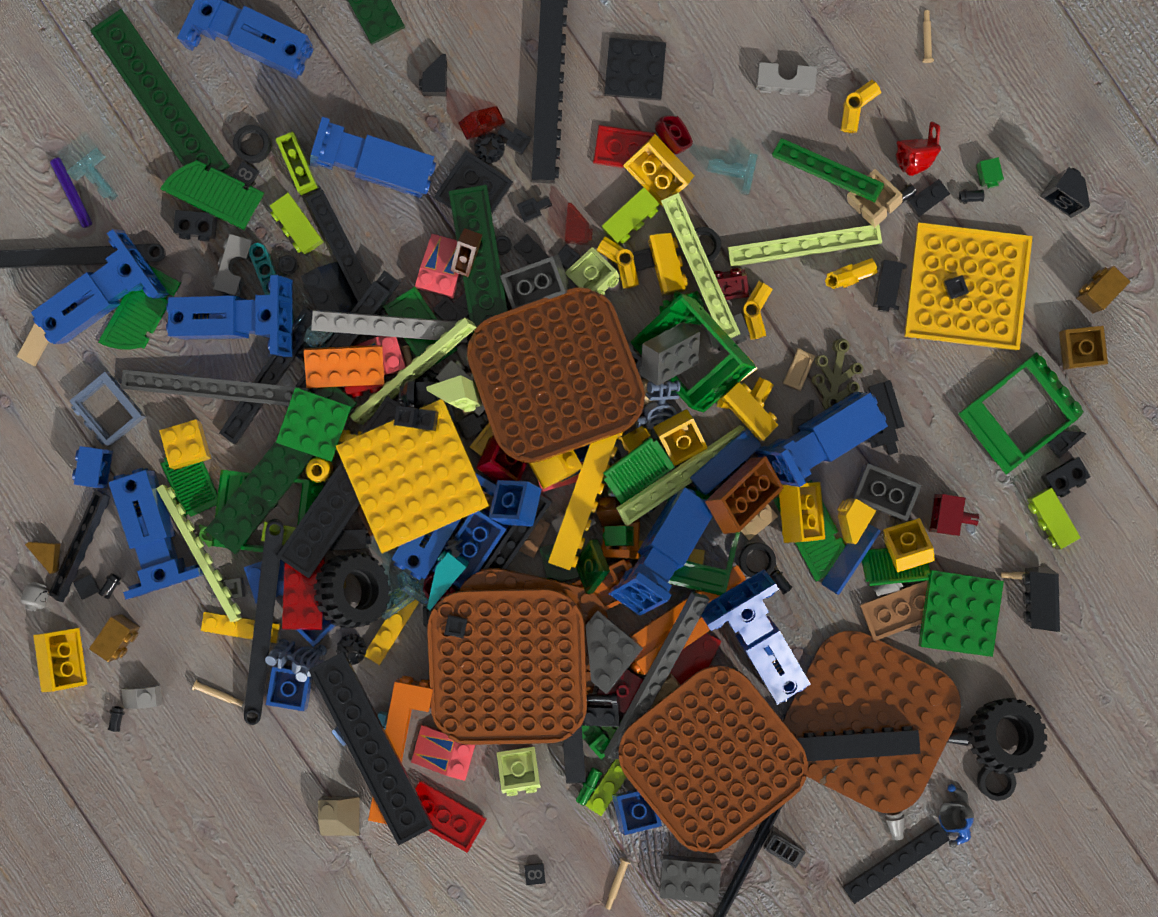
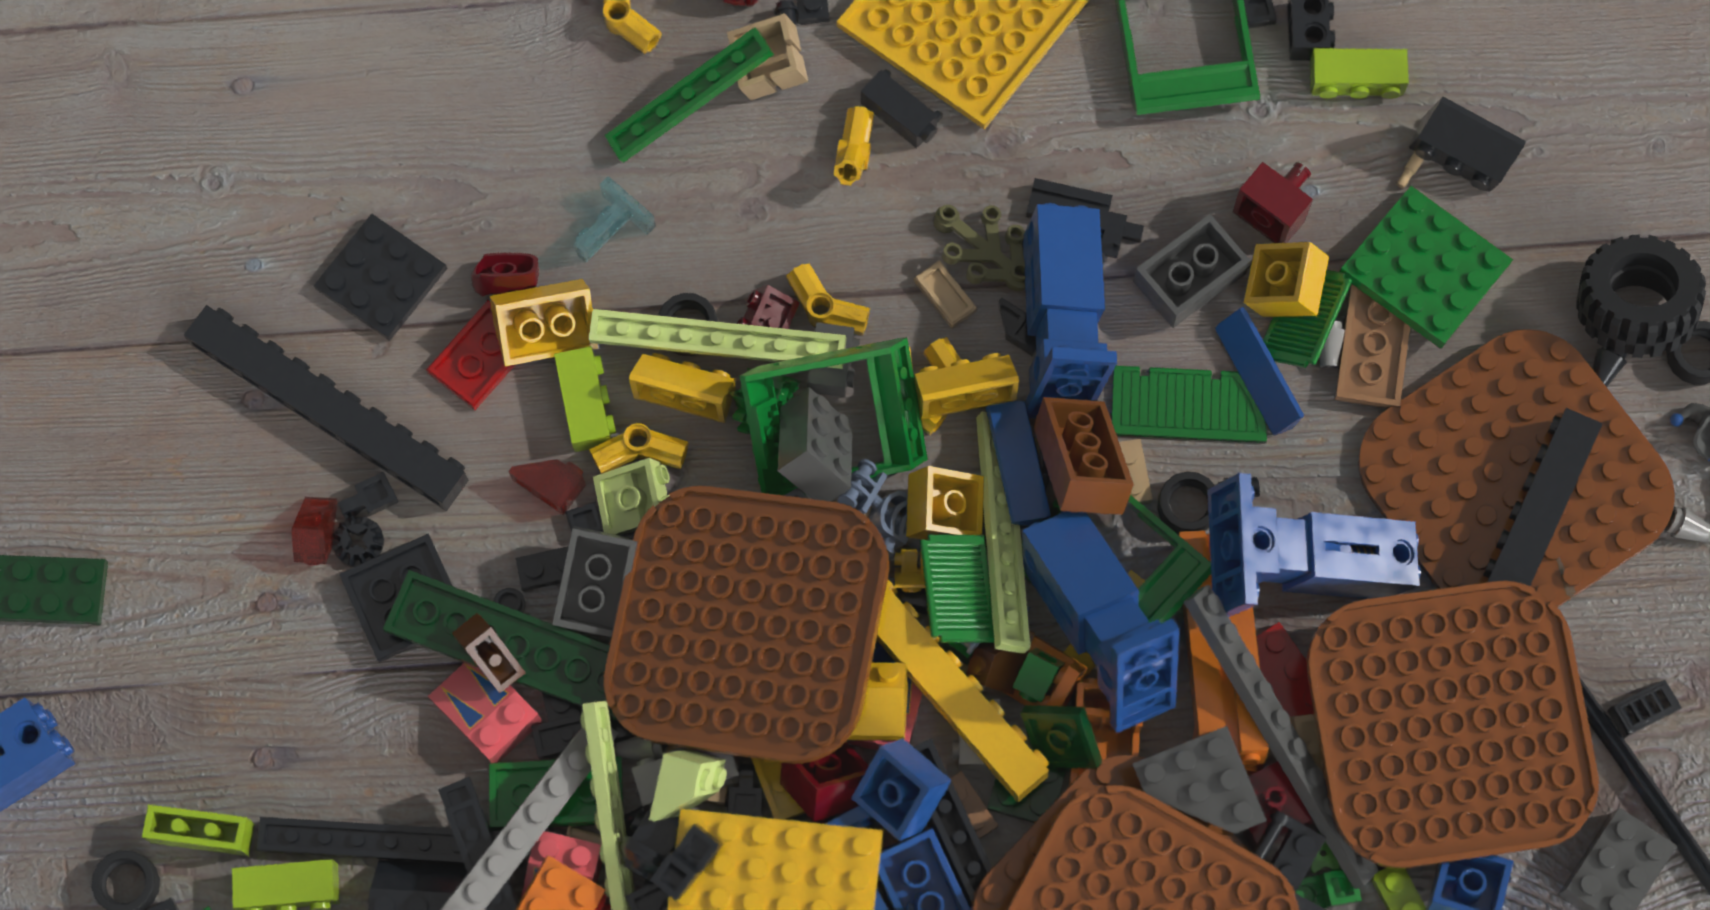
camera: 60 degrees left, 15 degrees down
(373, 159) = (264, 712): blue brick -> none
(435, 78) = (210, 559): black slope -> none
(531, 209) = (484, 532): black plate -> none
(643, 259) = (657, 416): black tile -> none
(770, 80) = (515, 104): light grey arch -> none
(802, 513) = (1154, 401): yellow slope -> none
(804, 245) = (773, 190): yellowish green plate -> none
(854, 519) = (1206, 330): yellow slope -> none
(956, 287) = (957, 21): black tile -> none

